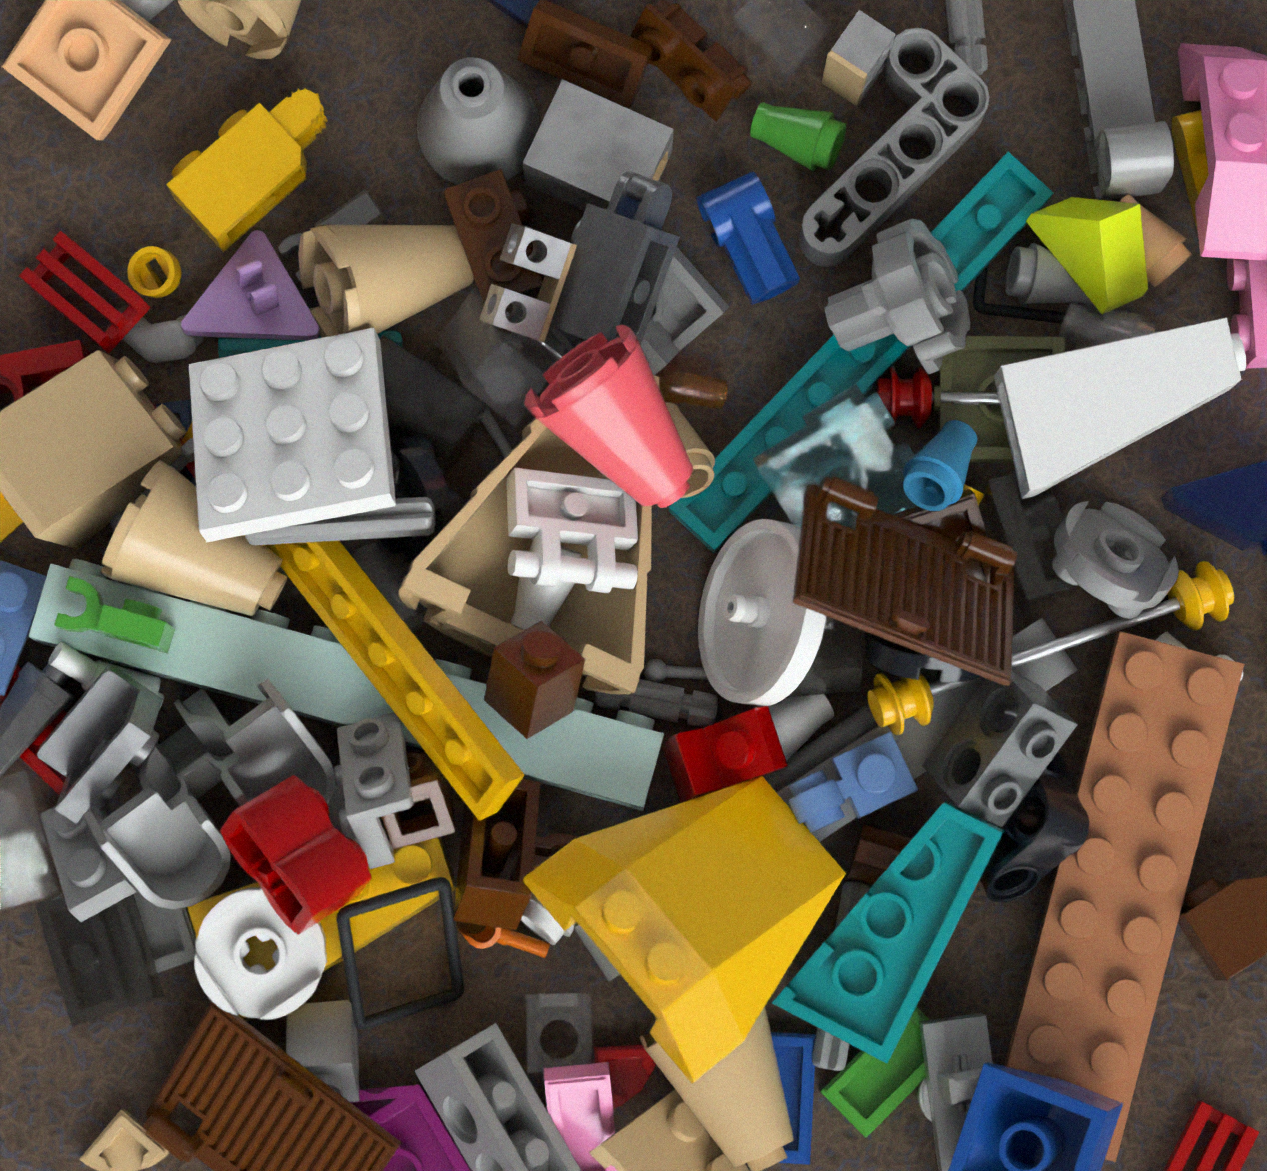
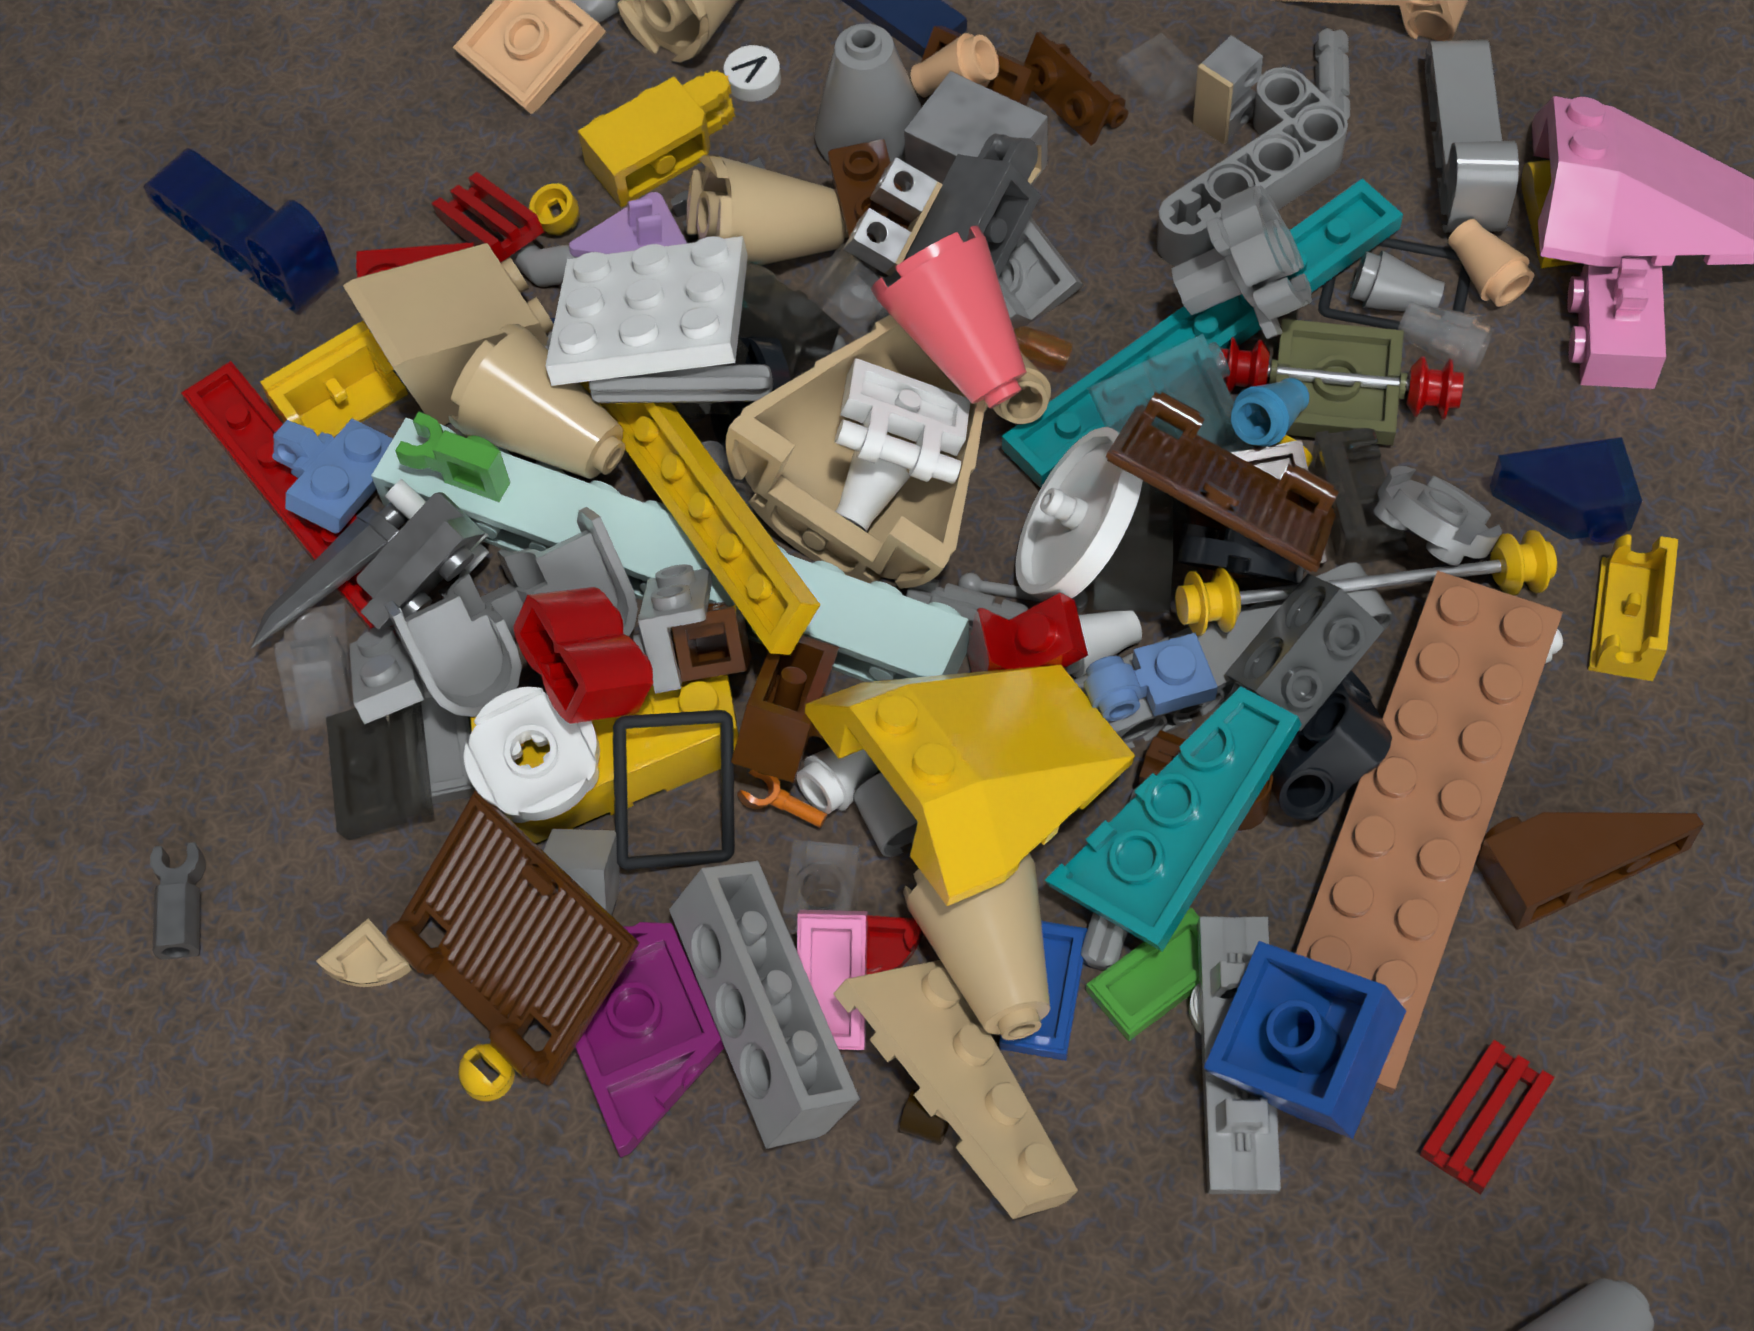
camera: 15 degrees right, 20 degrees down
(338, 67) = (753, 72): none -> white tile
(534, 679) = (845, 542): reddish brown brick -> none
(575, 56) = (966, 56): none -> light nougat cone
(746, 230) = (1107, 222): blue piece -> none
(801, 134) = (1170, 154): bright green cone -> none
(1097, 246) = (1443, 254): neon yellow slope -> none
(1100, 398) = (1444, 360): white slope -> none

